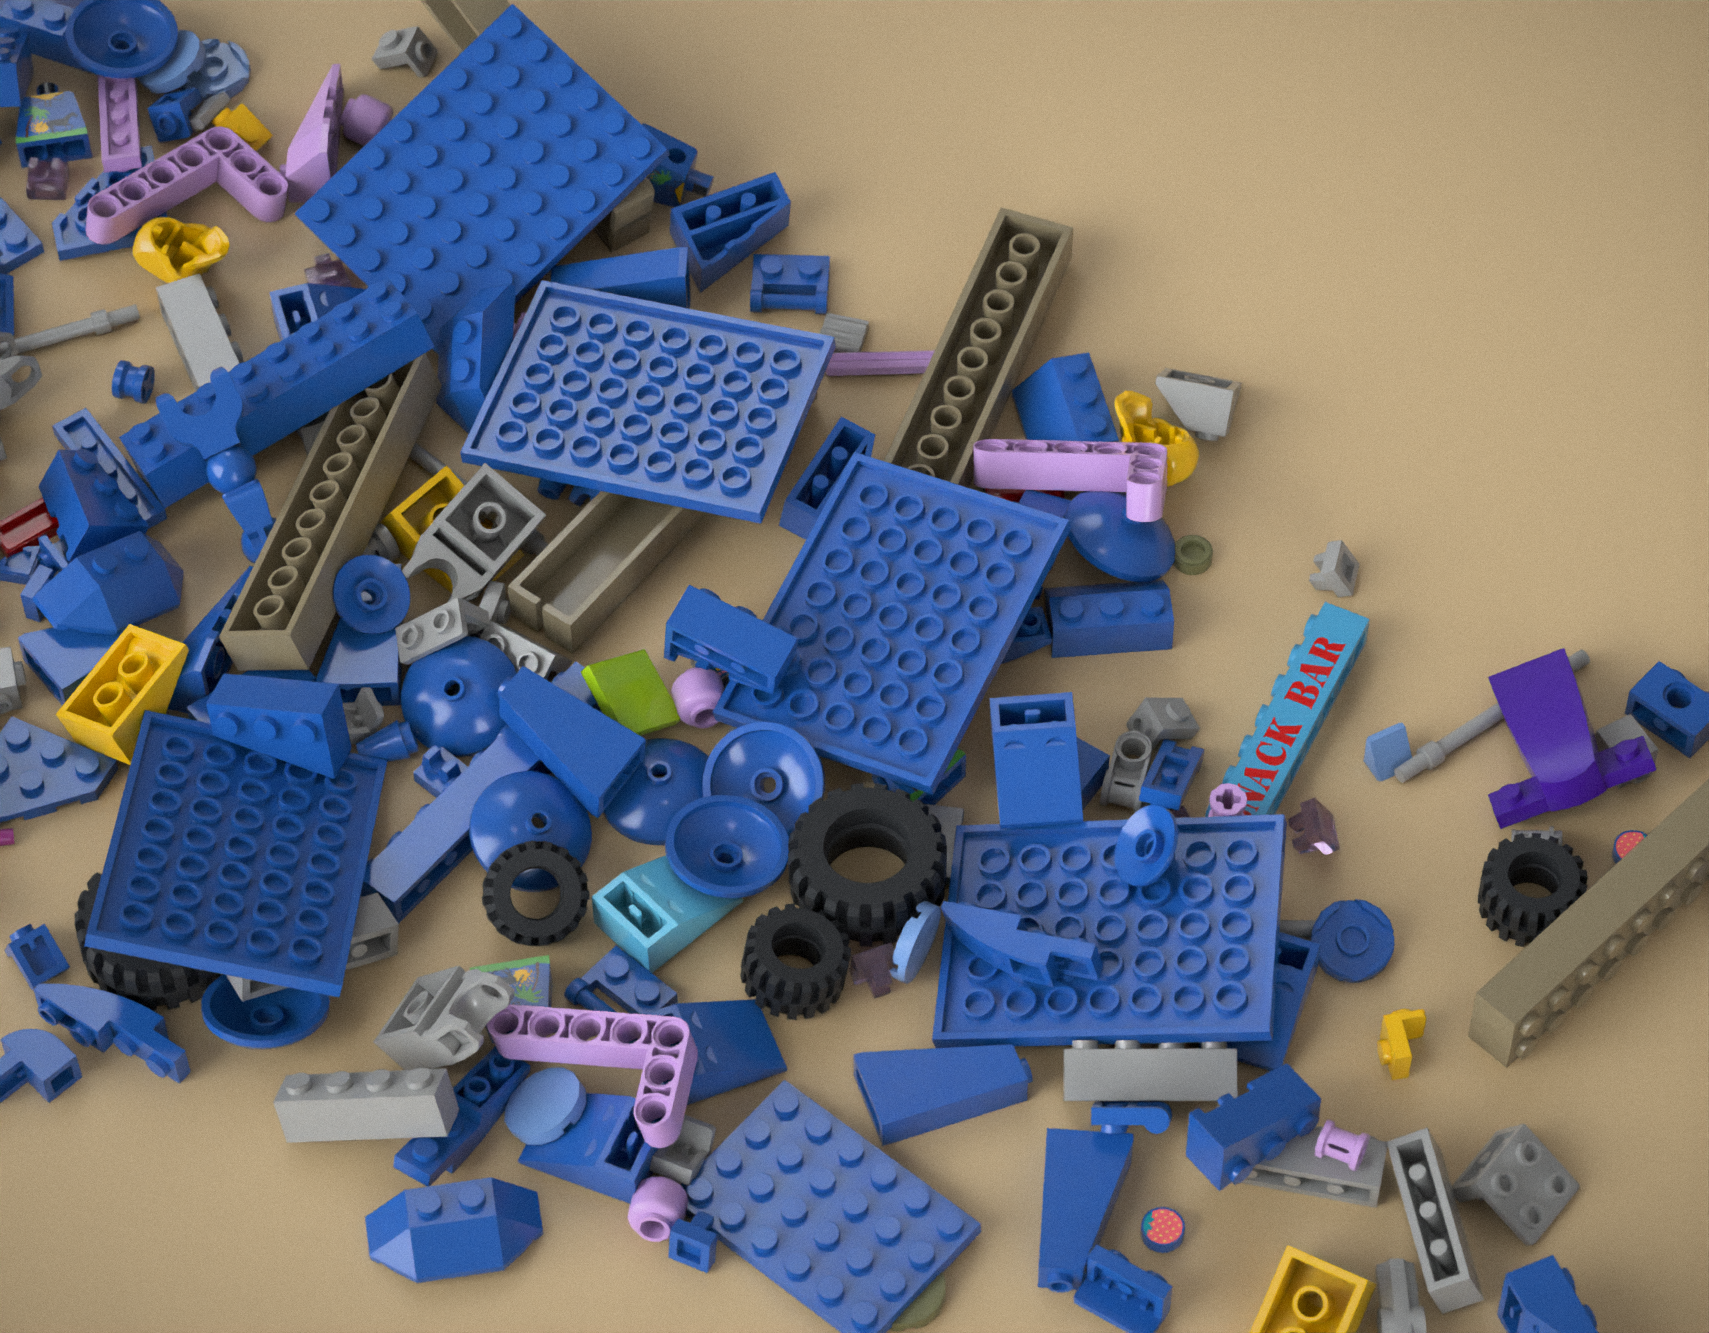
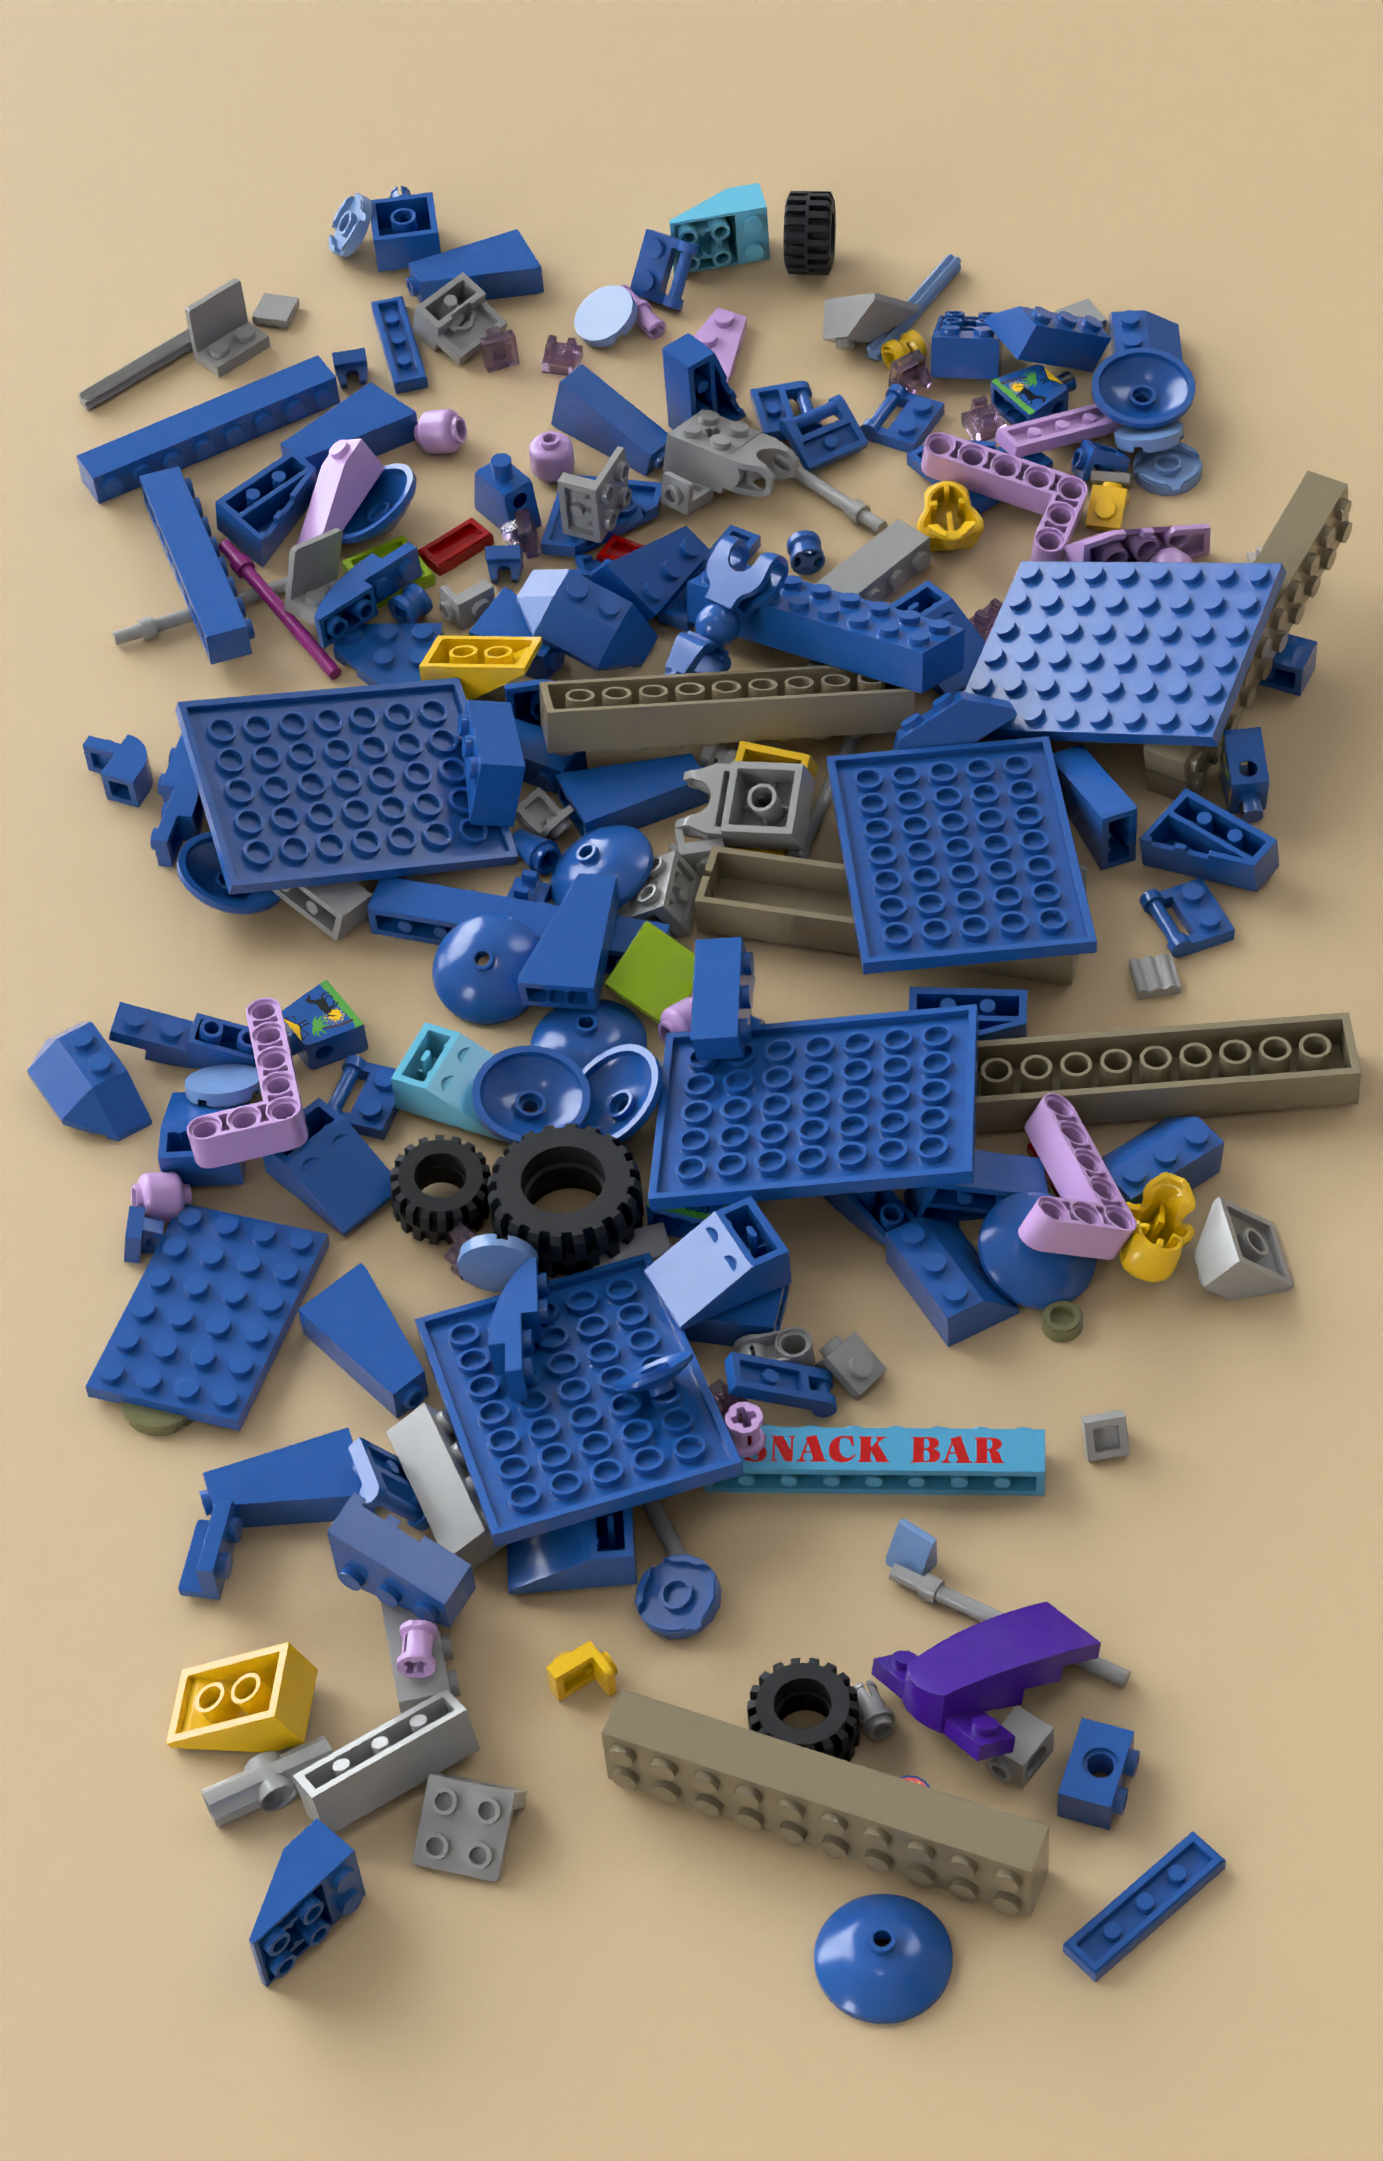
camera: 70 degrees right, 5 degrees down
(366, 1105) = (159, 966): light grey brick -> none
(384, 584) = (637, 750): blue dish -> none
(439, 629) = (649, 819): light grey bracket -> none
(443, 1018) = (257, 975): light grey brick -> none
(572, 886) = (397, 973): black tyre -> none
(686, 1155) = (220, 1193): light grey bracket -> none
(879, 363) = (1130, 1000): lavender axle -> none
(1162, 1229) = (301, 1563): tile -> none
(1318, 826) = (792, 1524): tile -> none

